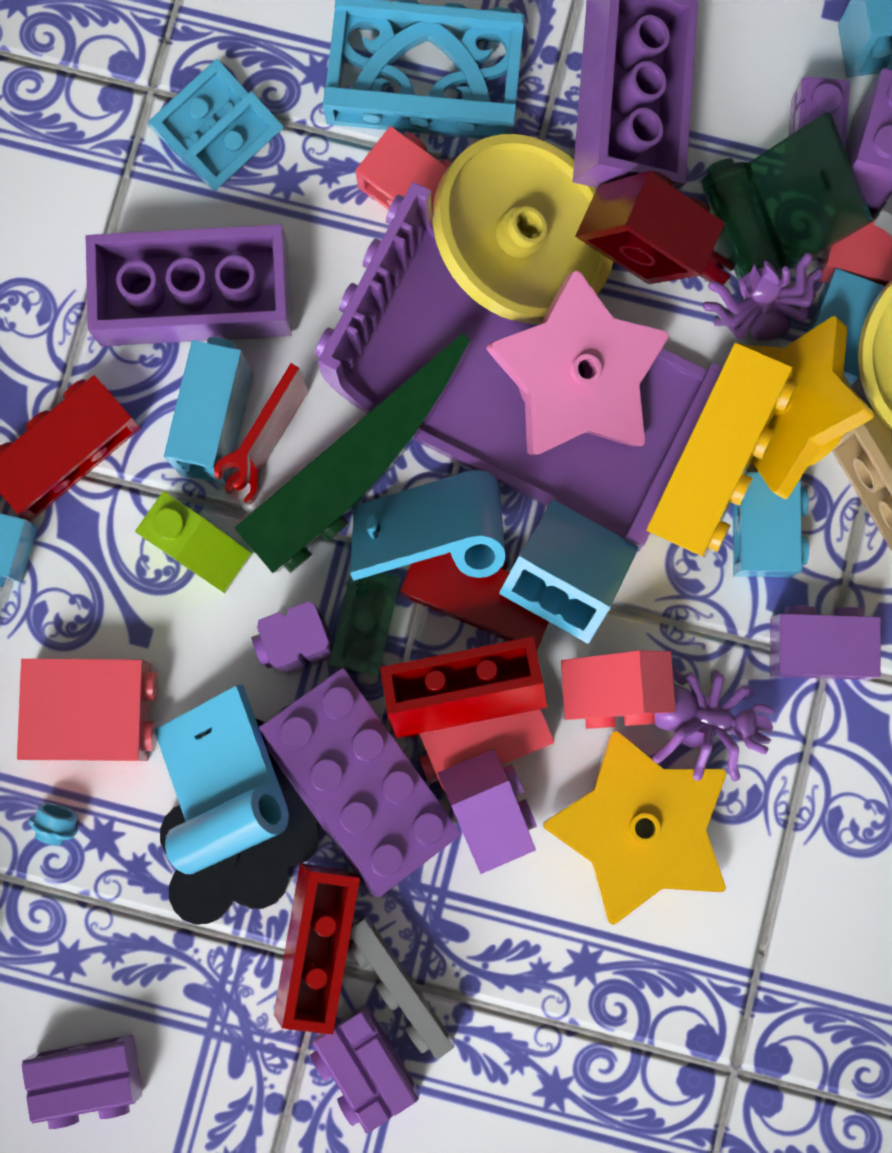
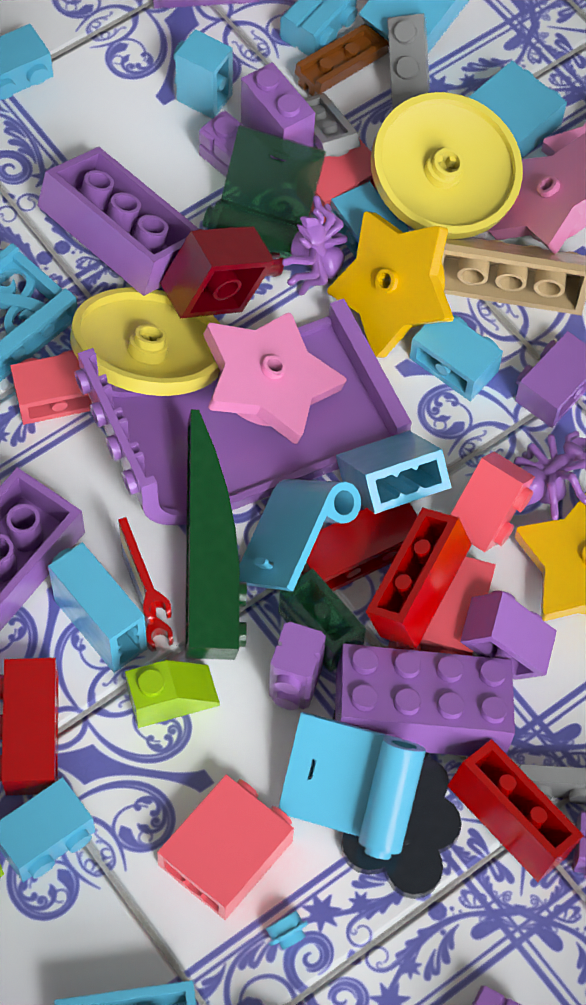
camera: 55 degrees left, 20 degrees down
(721, 450) = (394, 330): yellow slope -> none

